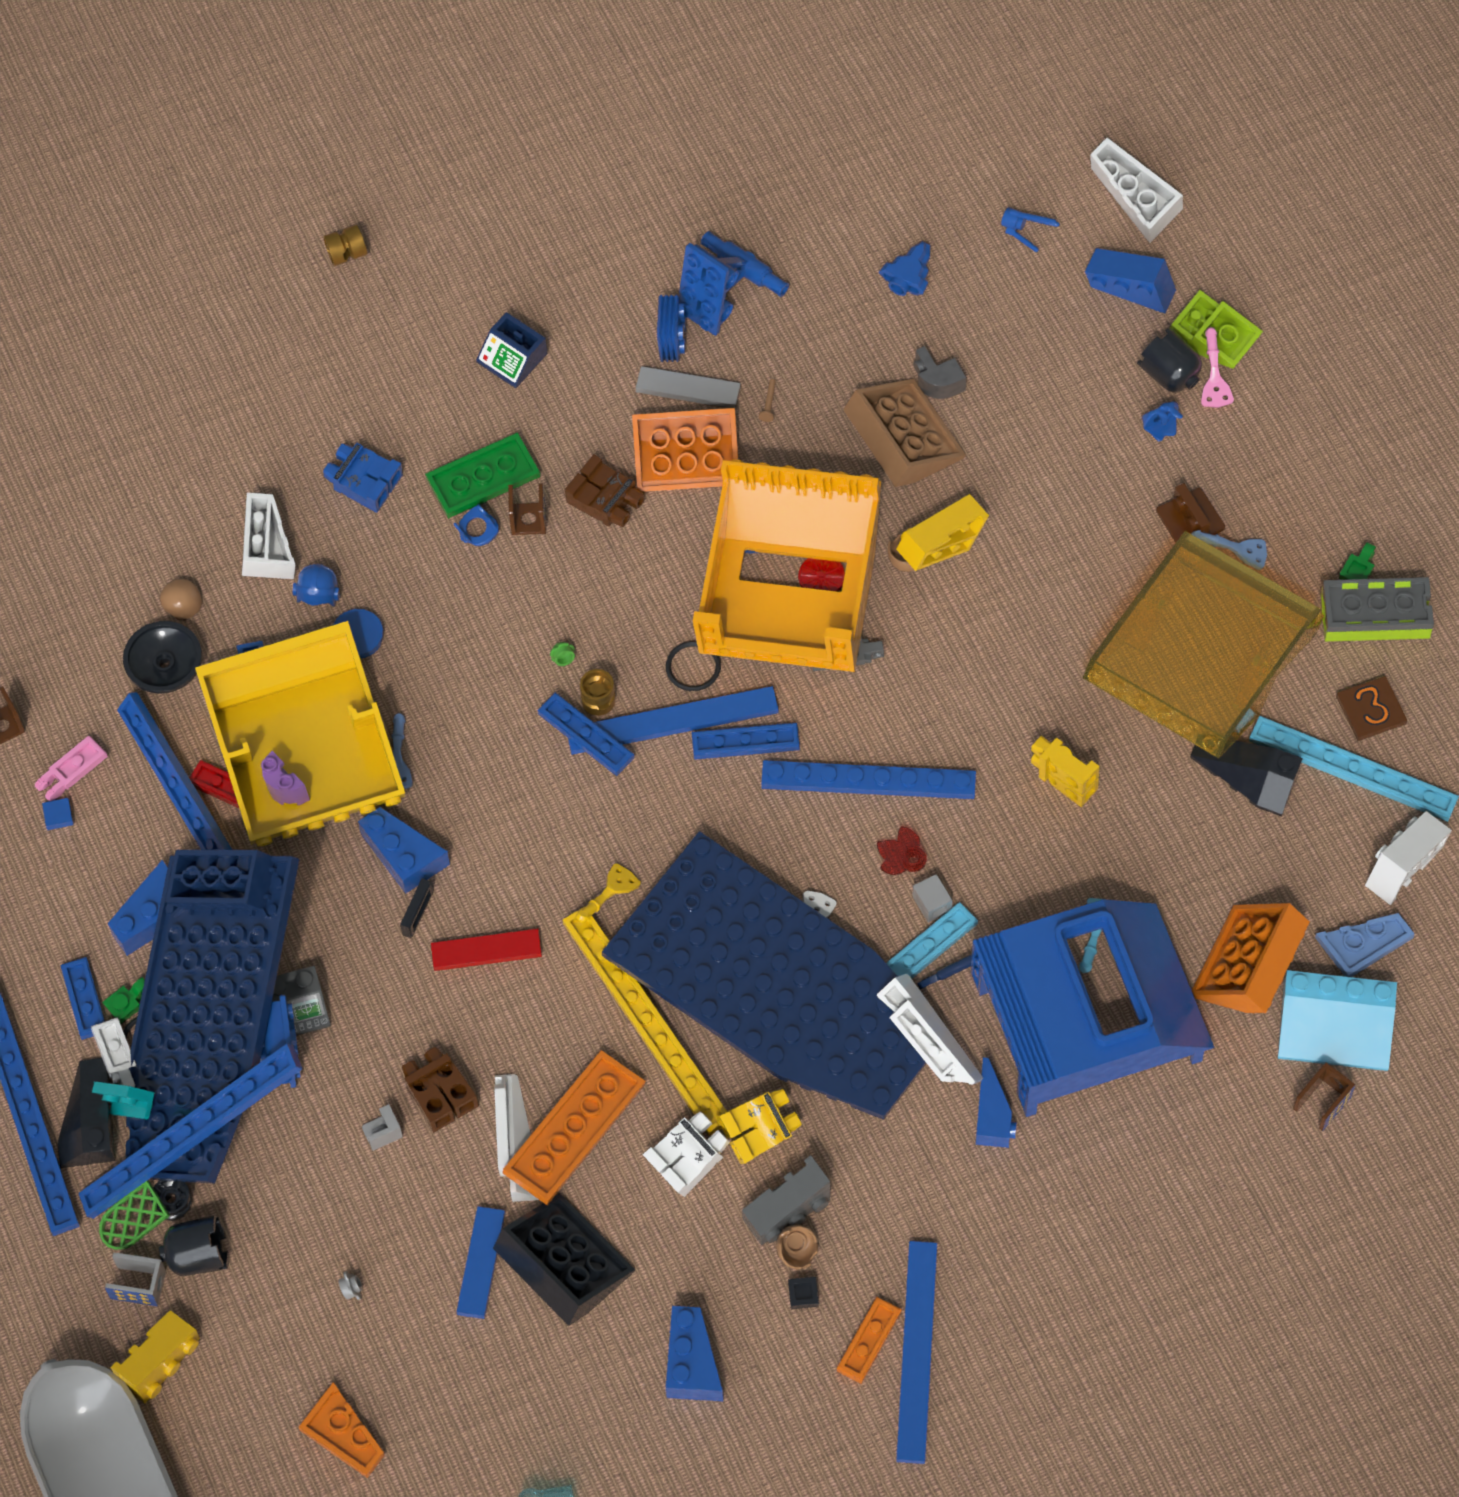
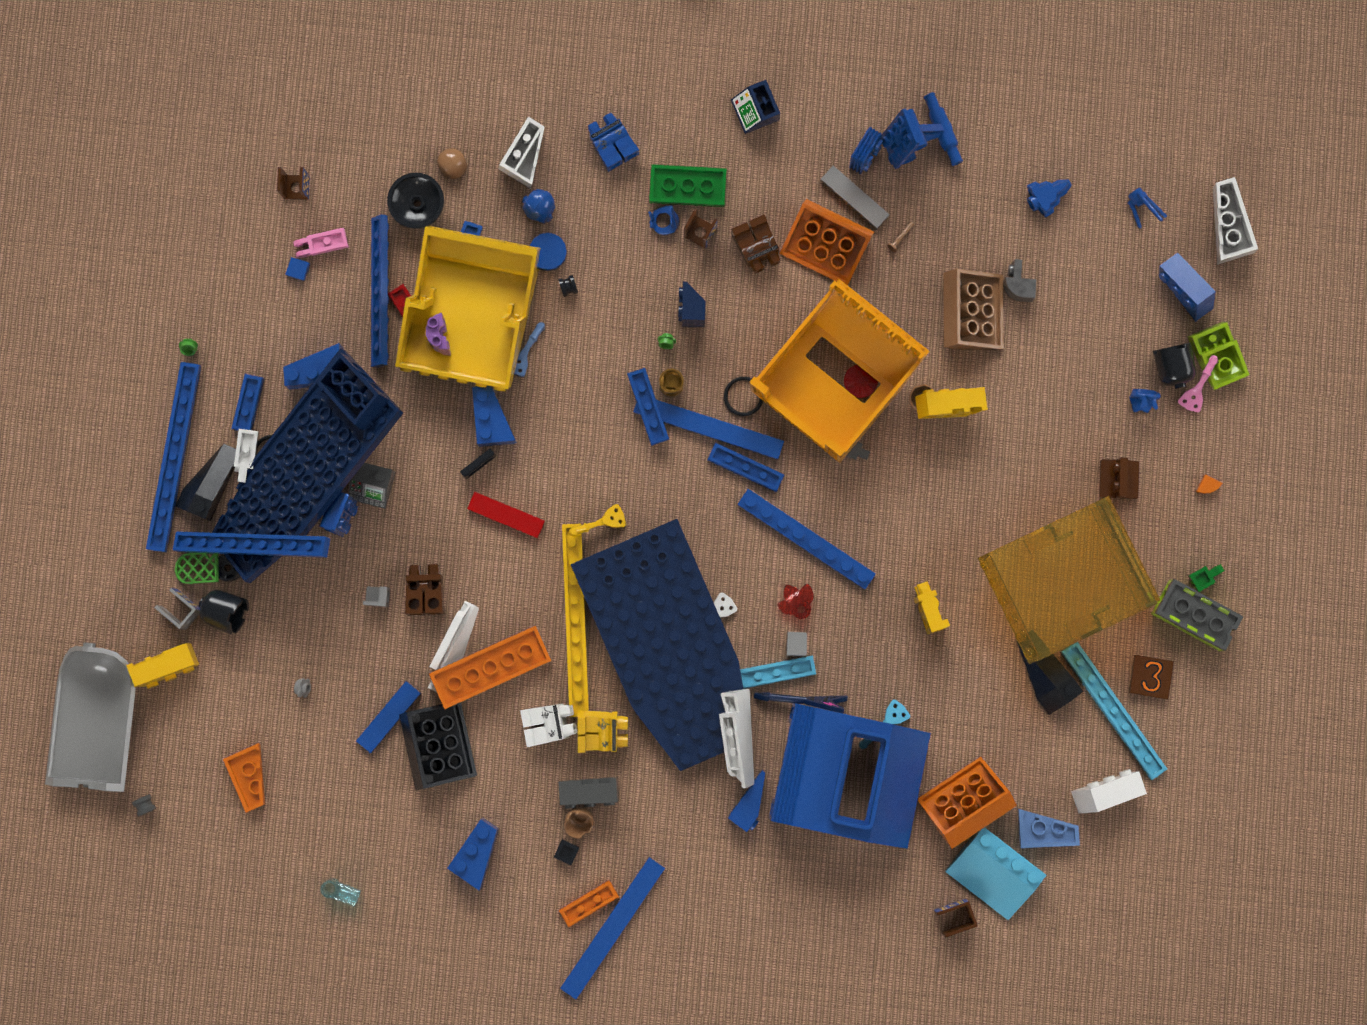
camera: 30 degrees right, 20 degrees up
(125, 1003) = (269, 421): green plate -> none
(126, 1100) = (231, 491): teal bracket -> none
(405, 655) = (568, 285): none -> black wheel
(571, 595) = (693, 307): none -> dark blue slope
(1240, 549) = (1136, 519): medium blue piece -> none
(1296, 471) = (1208, 485): none -> orange tile

